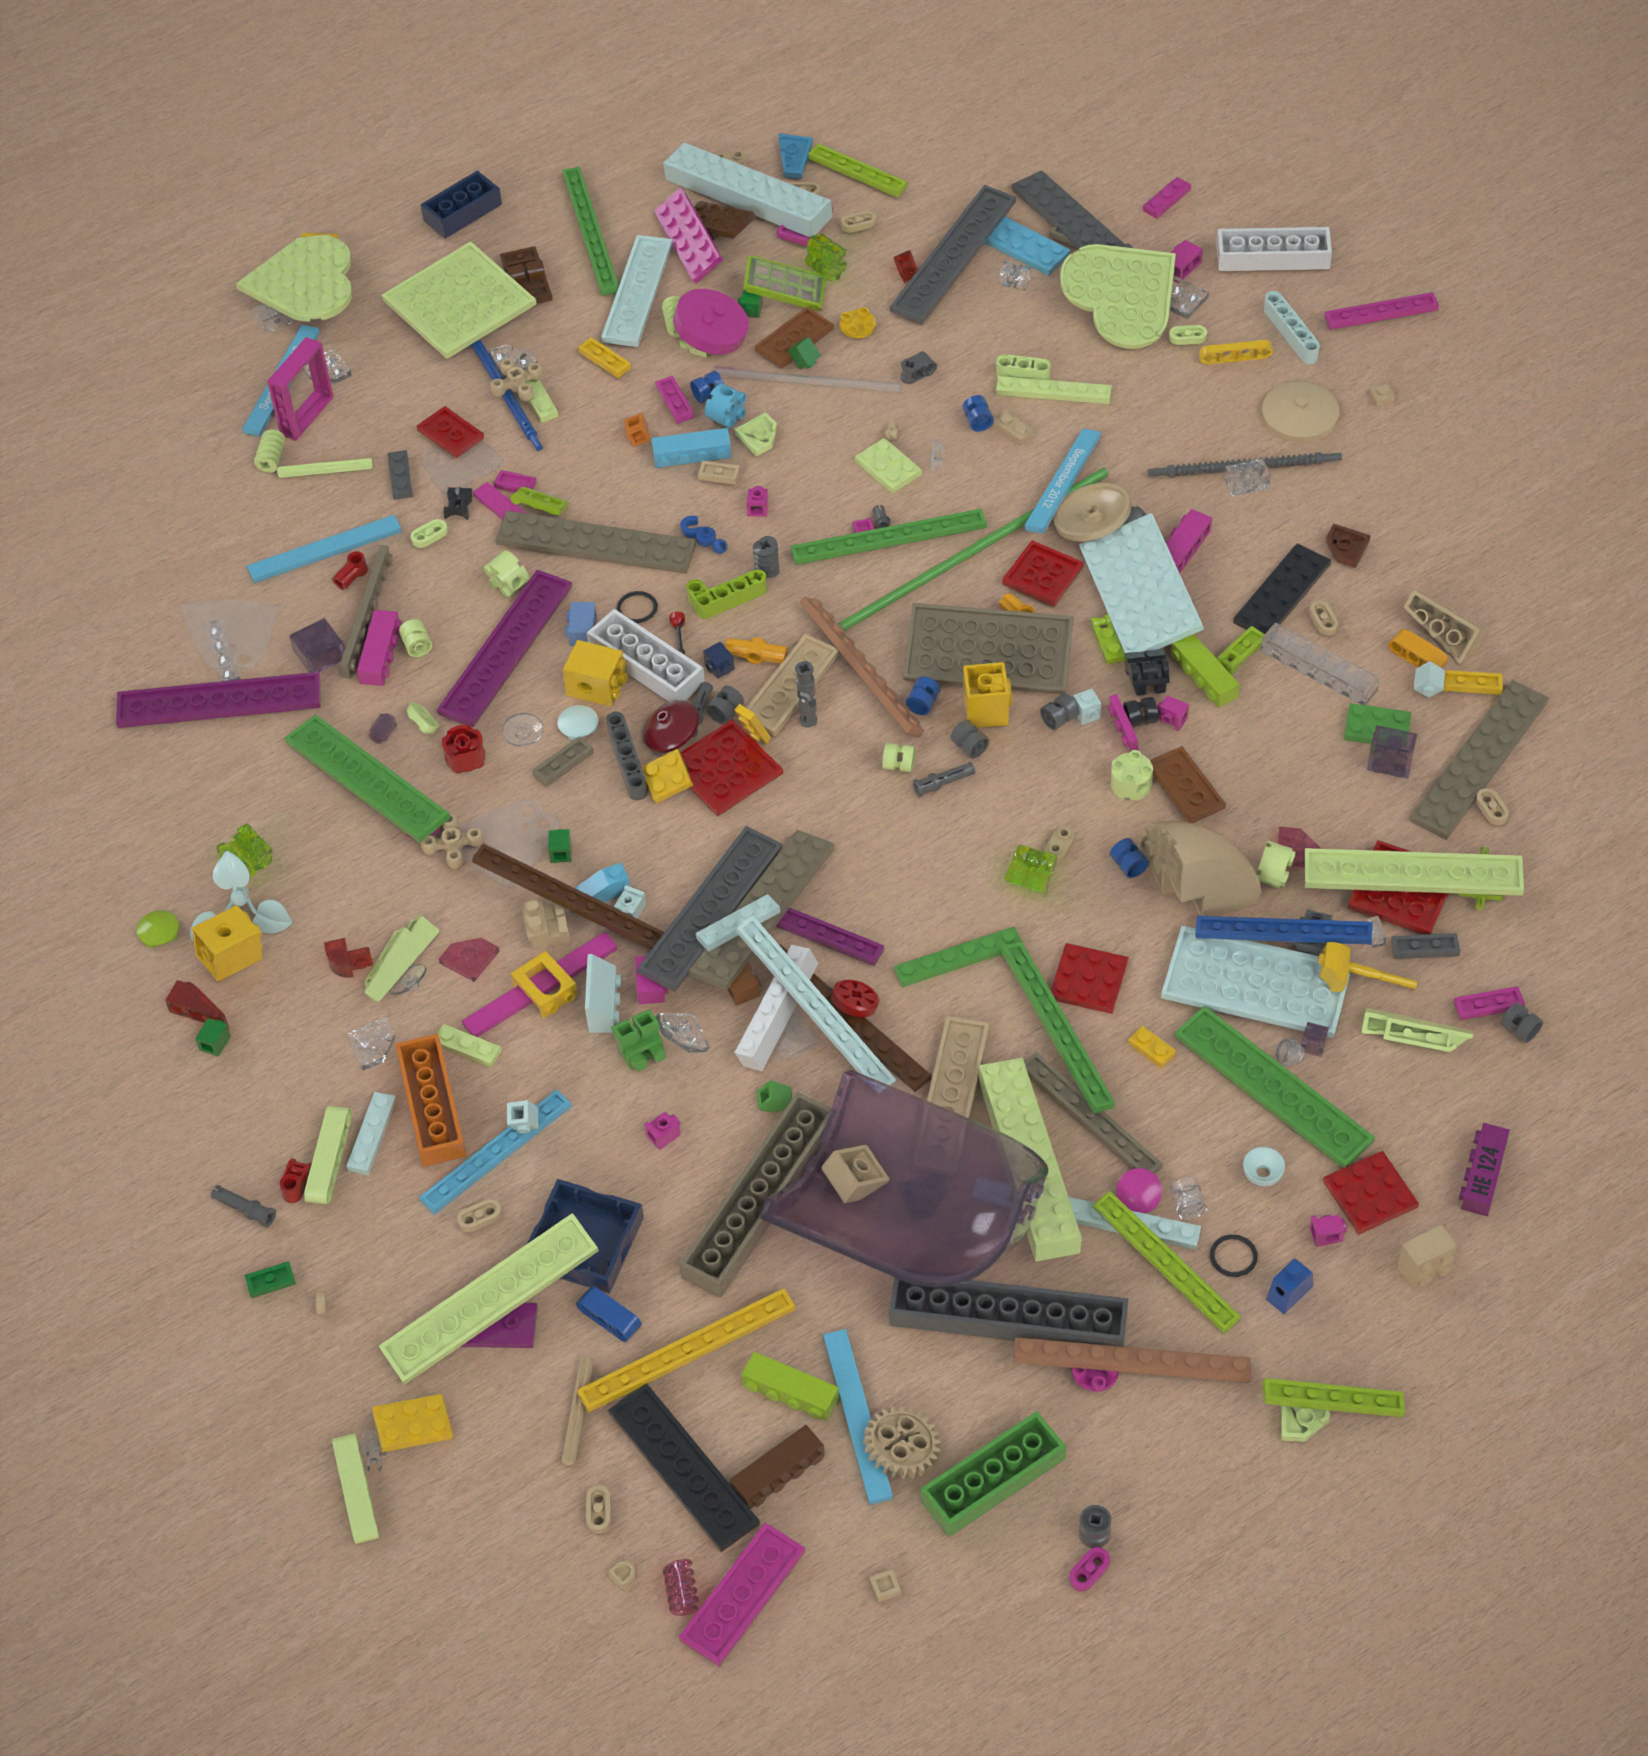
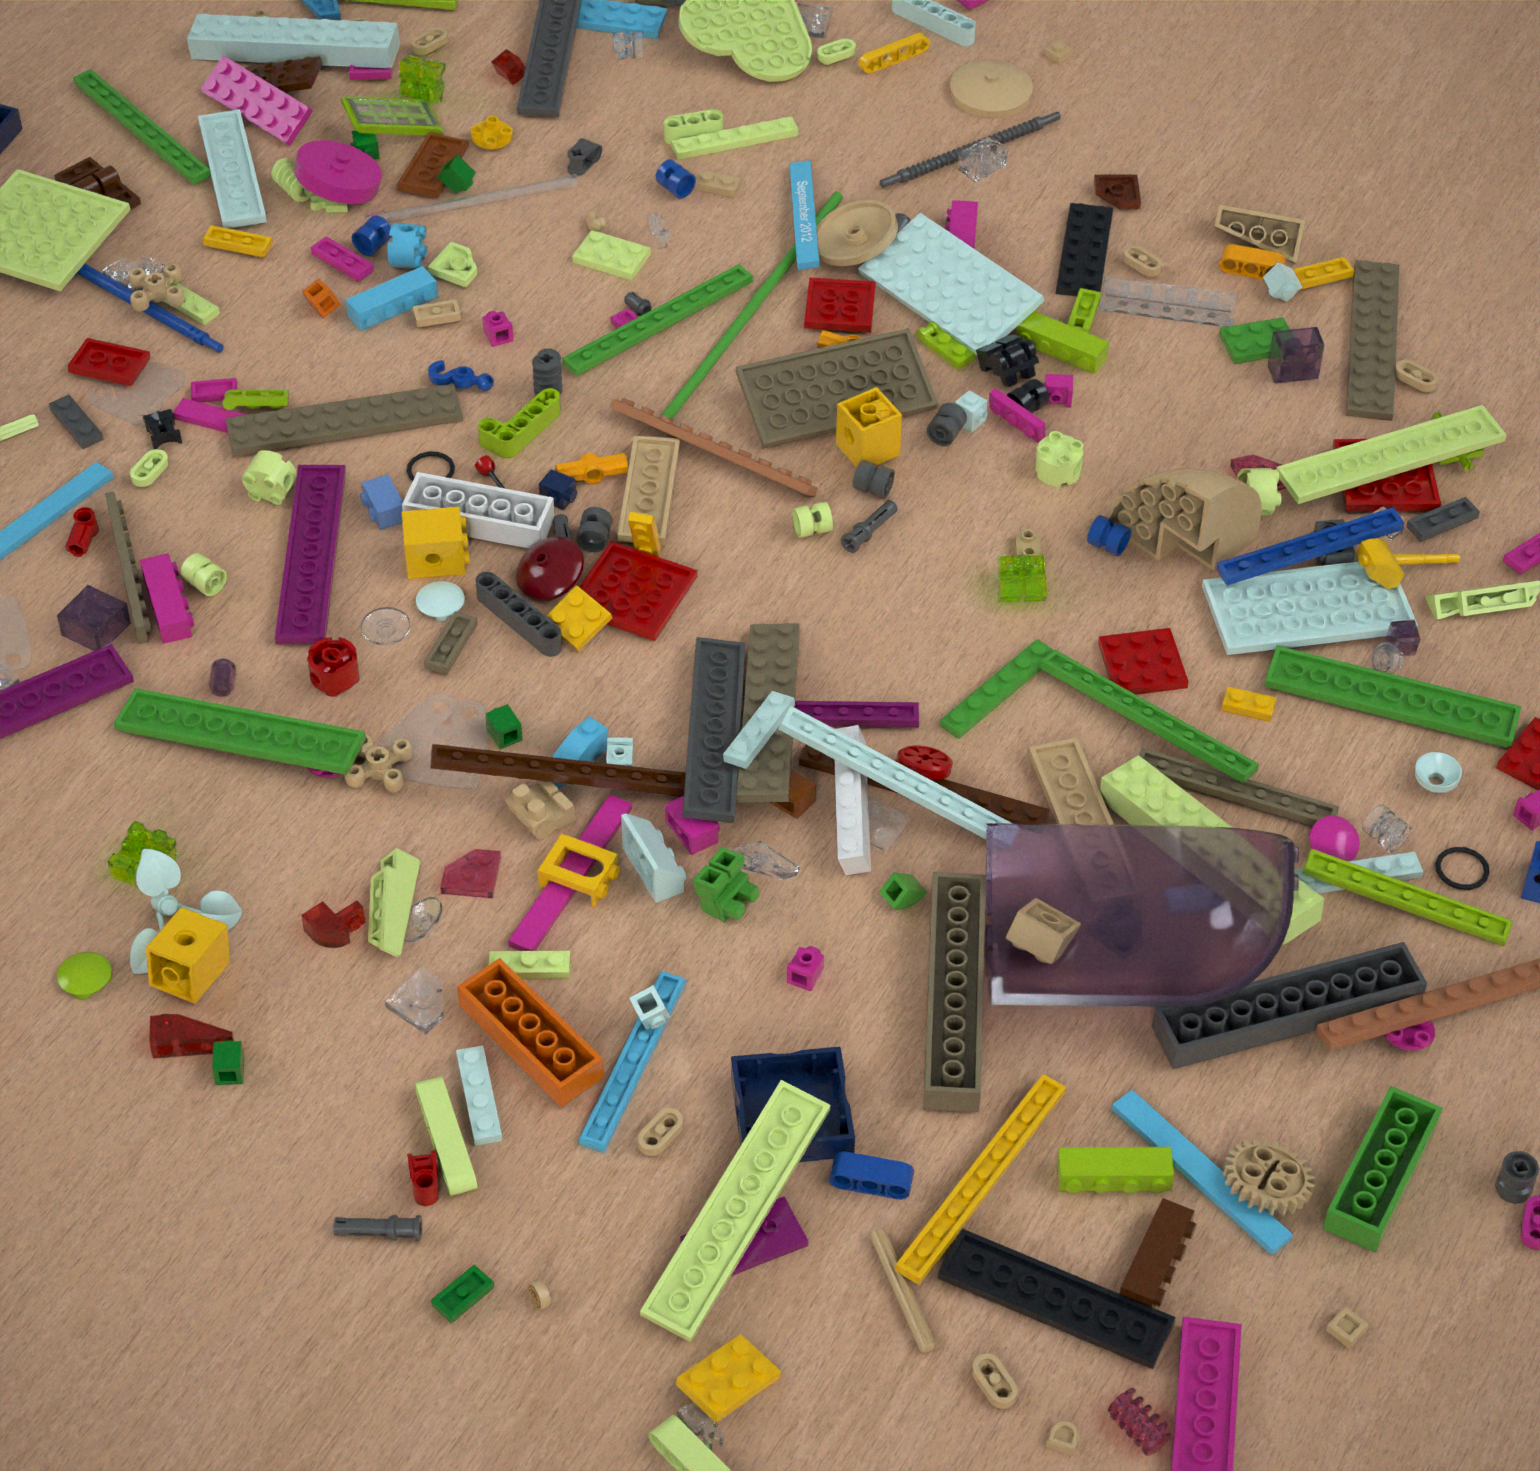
camera: 30 degrees left, 5 degrees down
(423, 718) = (255, 649): yellowish green plate -> none
(806, 693) = (687, 484): dark grey piece -> none
(923, 695) = (798, 453): blue wheel -> none
(1186, 785) = (1118, 451): dark orange plate -> none

